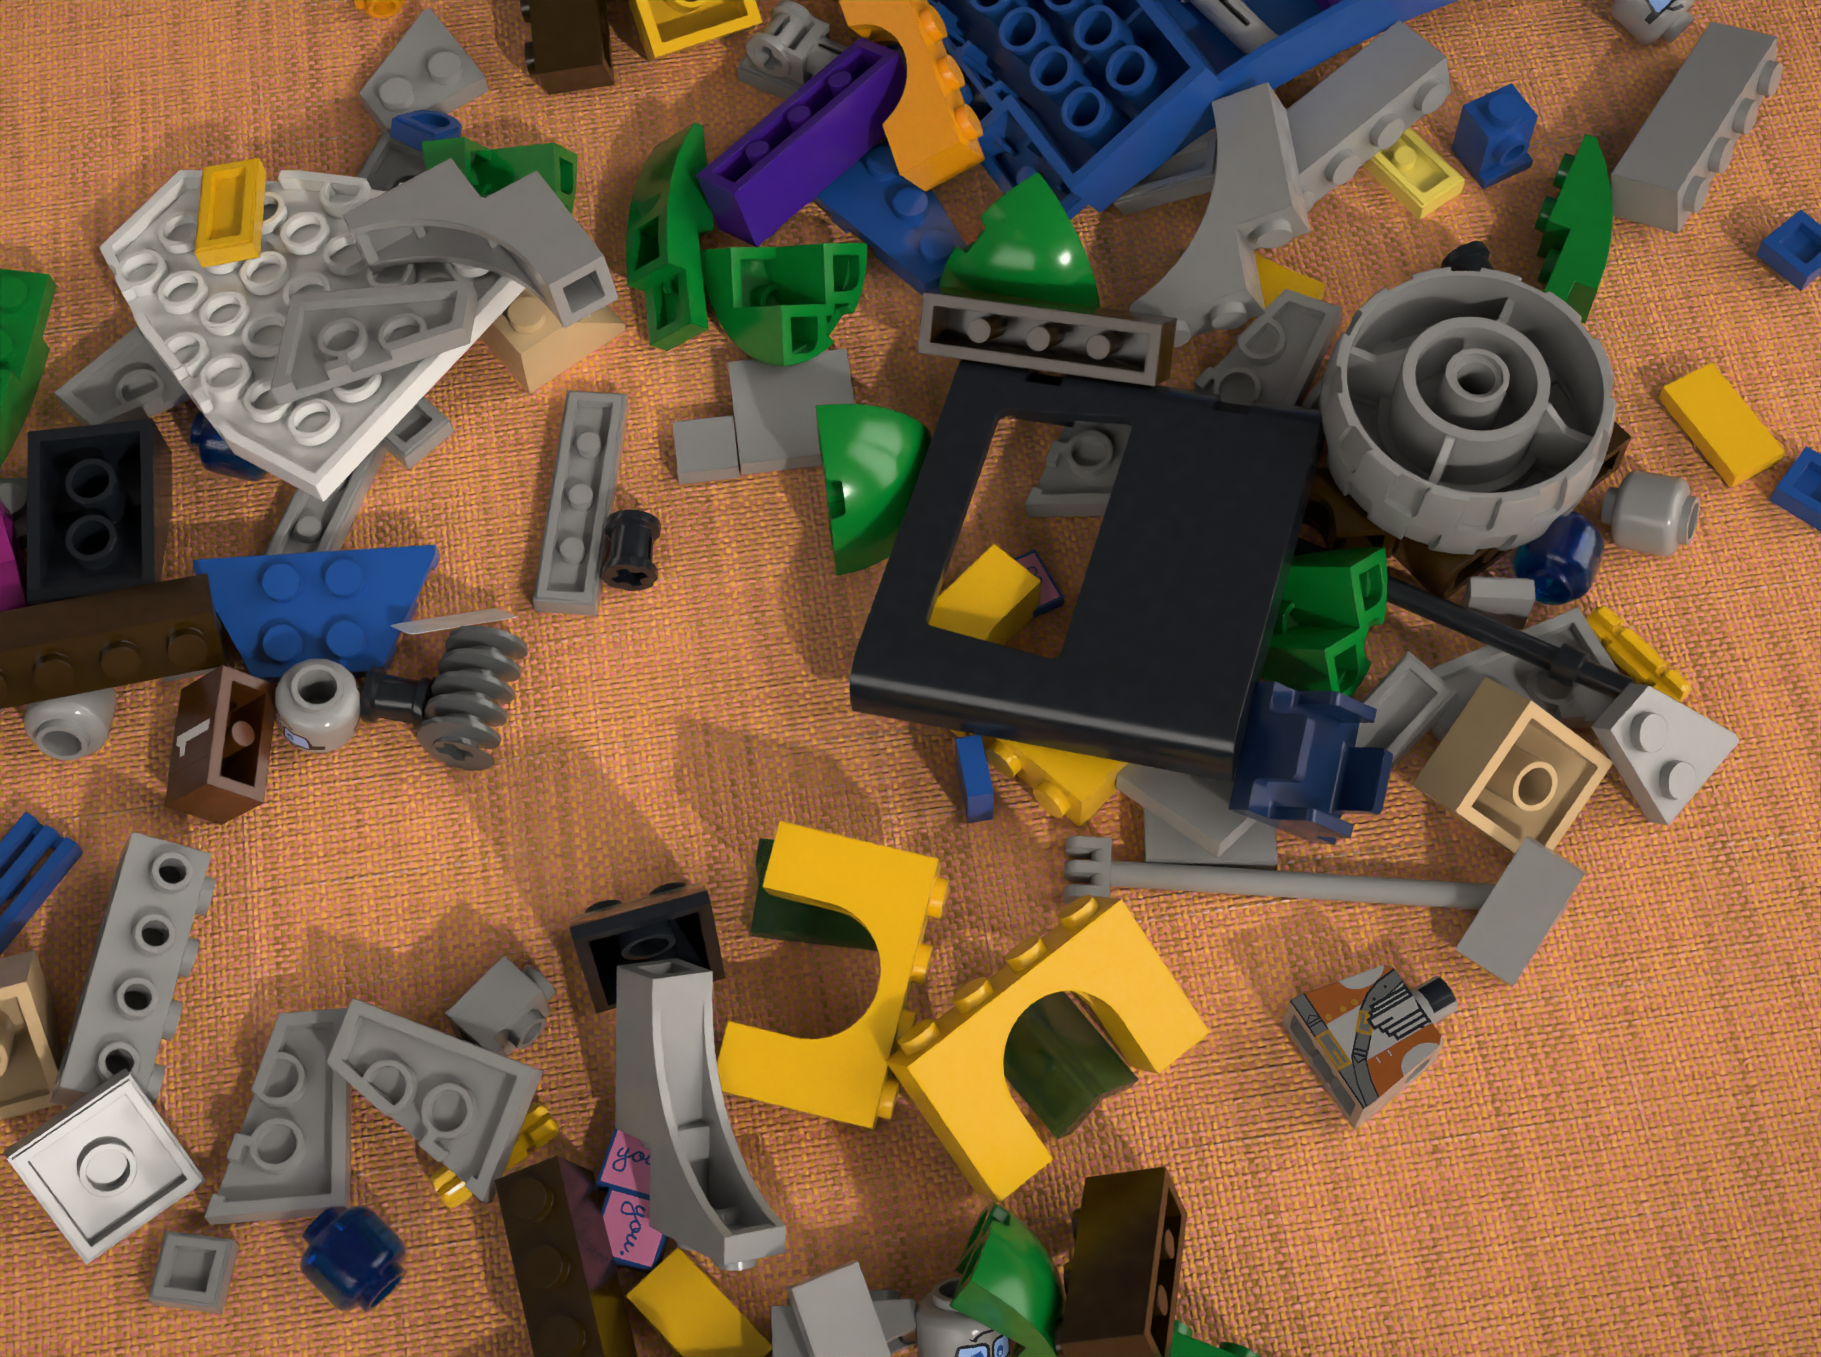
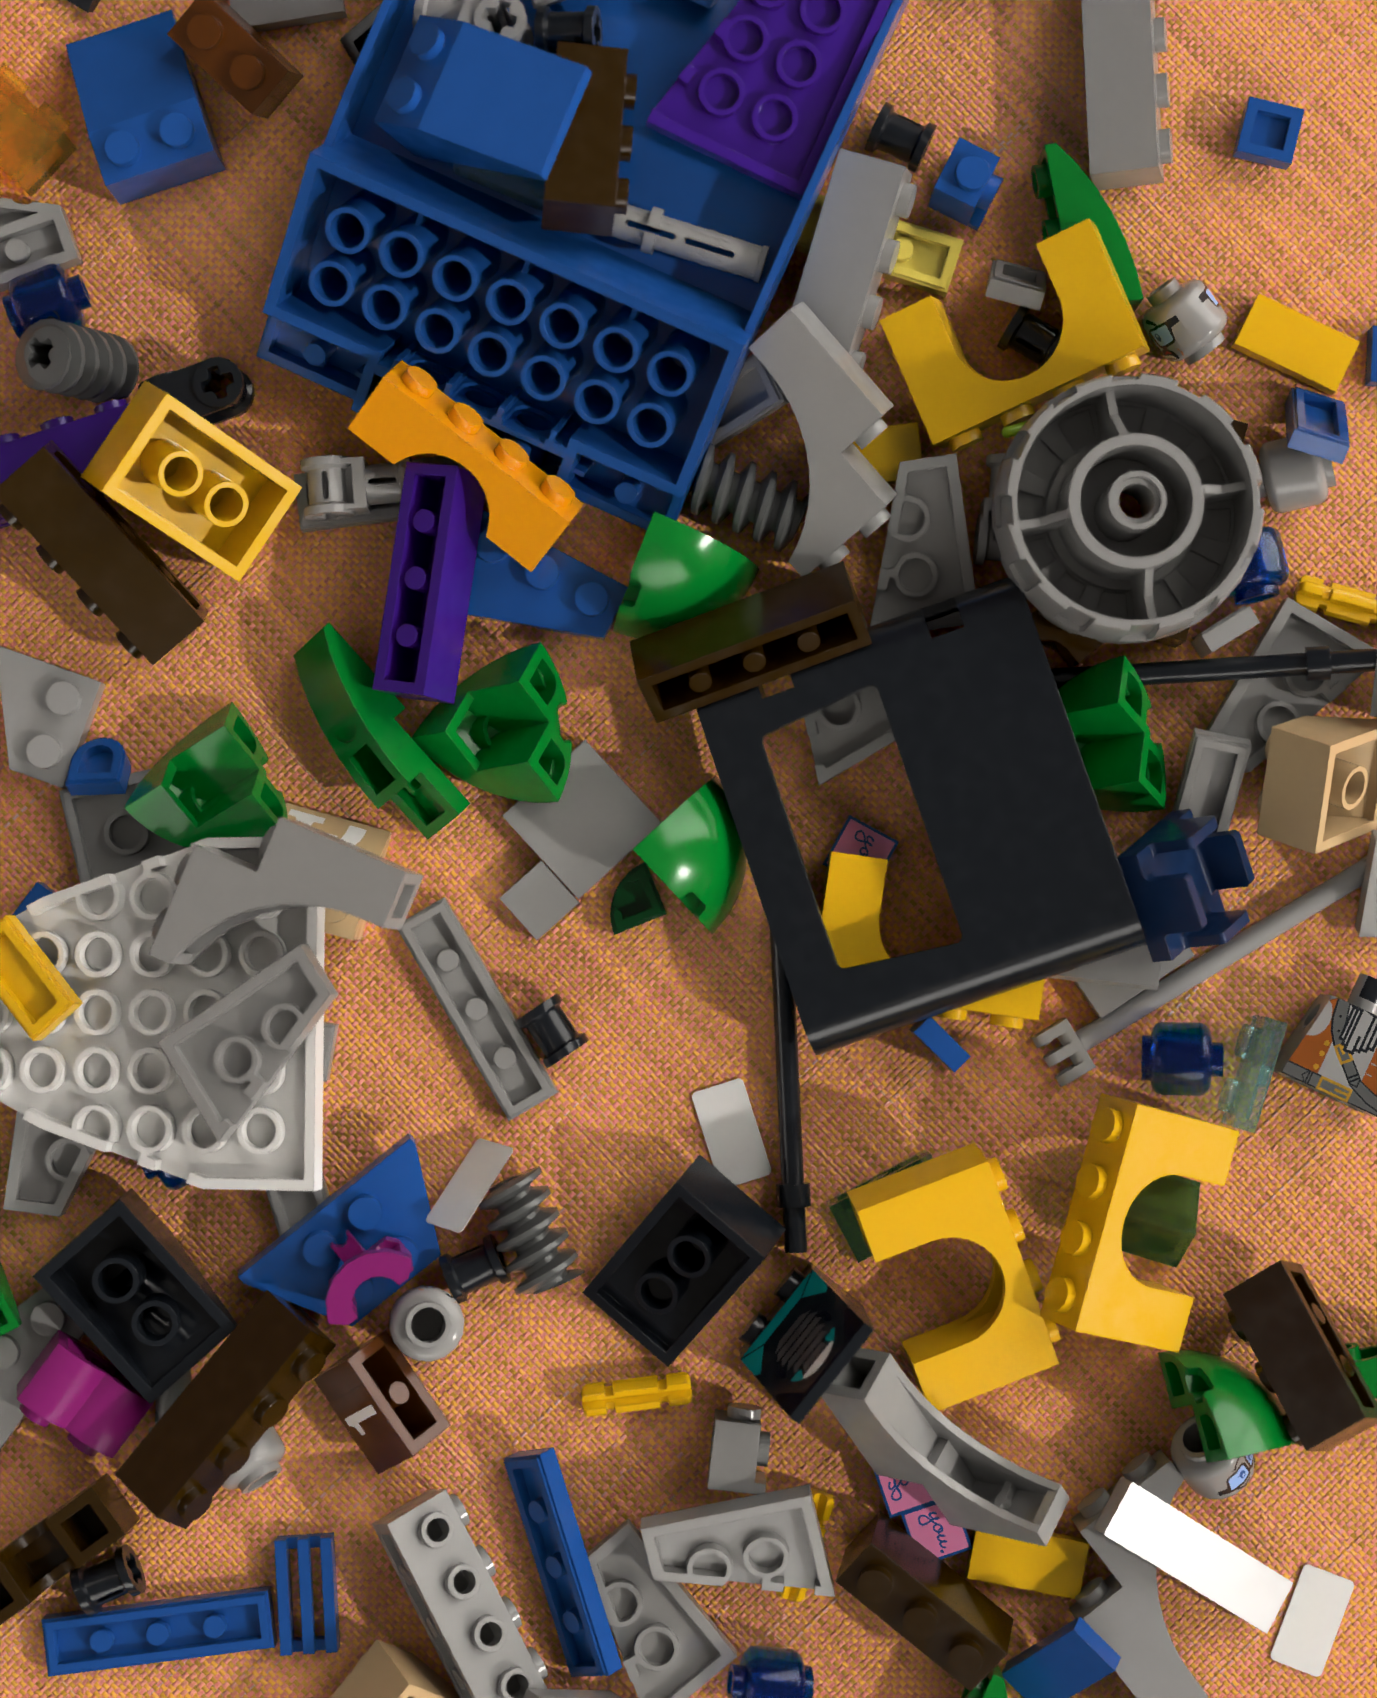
camera: 35 degrees left, 25 degrees up
(256, 1008) = (562, 1563): none -> blue tile
(291, 596) = (385, 1259): none -> magenta piece
(452, 908) = (636, 1394): none -> yellow axle
(591, 811) = (684, 1261): none -> black slope
(722, 748) = (731, 1131): none -> white sticker
(739, 824) = (792, 1192): none -> black bar
(789, 503) = (635, 900): none -> dark green tile
(1124, 241) = (747, 499): none -> dark grey piece
(1198, 937) = (1181, 1058): none -> clear blue head
(1238, 1015) = (1245, 1094): none -> clear light blue plate
(1376, 225) = (1095, 338): none -> yellow arch
(1465, 76) = (900, 137): none -> black bush
(1489, 230) = (1016, 284): none -> light grey tile
(1631, 336) = (1184, 320): none -> light grey head
(1697, 474) = (1316, 425): none -> blue tile

